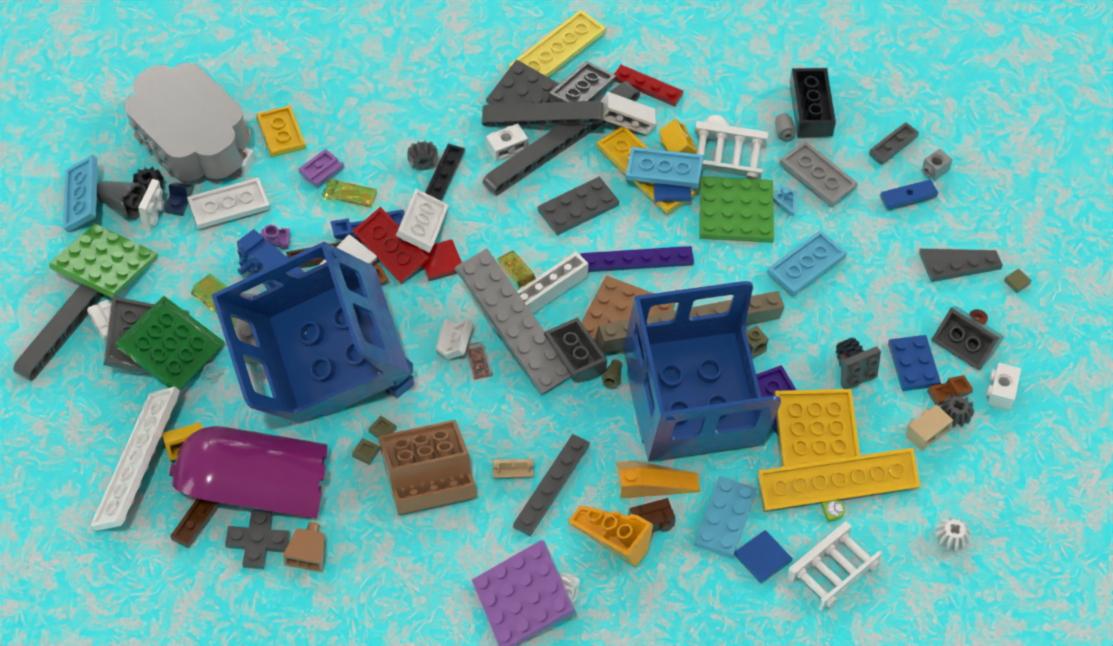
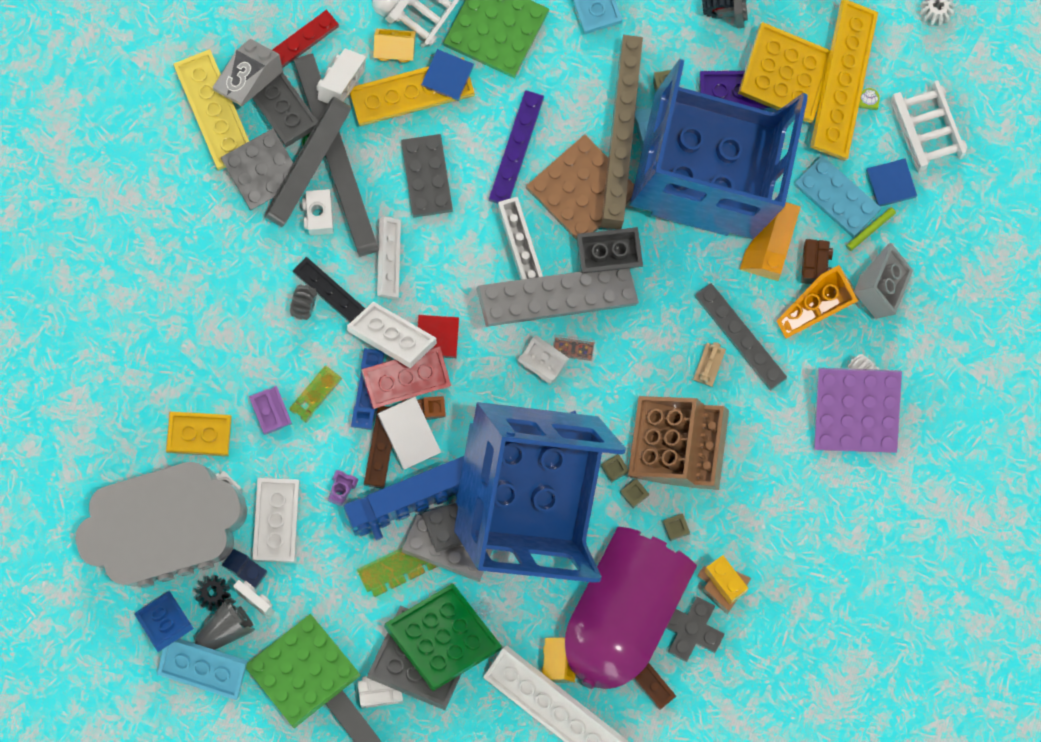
camera: 65 degrees left, 20 degrees up
(108, 152) = (163, 621): none -> blue tile
(308, 537) = (726, 579): none -> yellow brick
(348, 494) = (676, 527): none -> olive tile
(491, 201) = (389, 257): none -> white plate
(516, 268) = (488, 267): clear yellow plate -> none
(598, 53) = (248, 72): none -> light grey slope
(612, 375) = (646, 230): olive cone -> none
(660, 576) = (884, 283): none -> light grey slope
(664, 167) = (429, 72): medium azure plate -> none
(709, 555) = (871, 228): none -> lime bar

